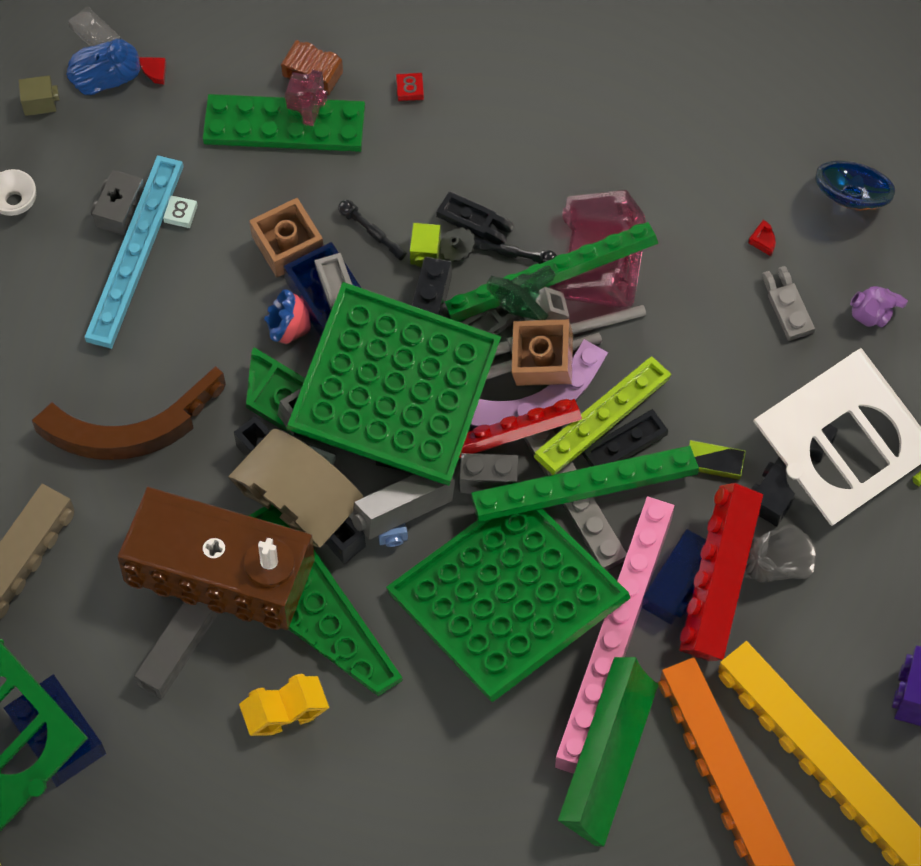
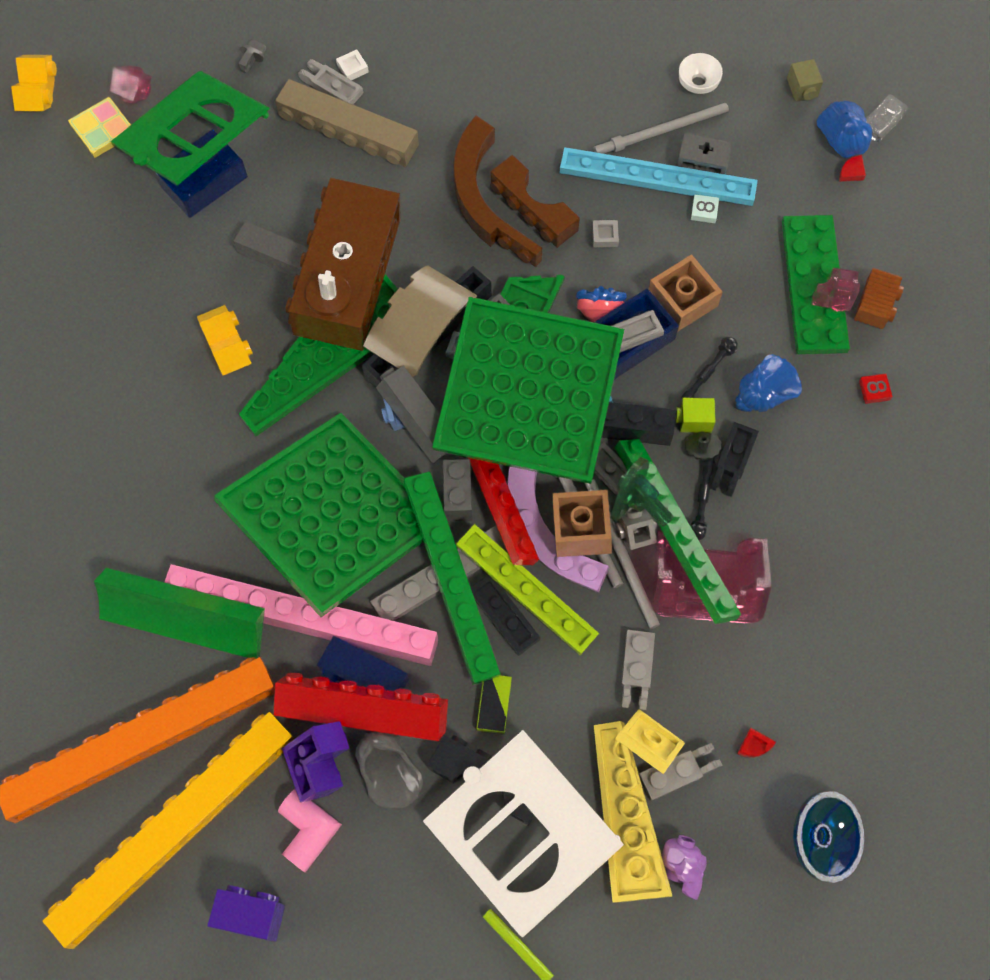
camera: 85 degrees right, 5 degrees up
(83, 283) = (618, 143): none -> light grey bar
(122, 394) = (553, 221): none -> reddish brown arch
(198, 308) = (605, 233): none -> light grey plate
(401, 177) = (768, 385): none -> blue hair
(686, 329) = (637, 666): none -> light grey hinge
(762, 319) = (650, 741): none -> light yellow tile
(769, 622) = (313, 763): none -> dark purple brick
(836, 632) = (315, 830): none -> bright pink brick
(882, 341) = (637, 866): none -> light yellow wing

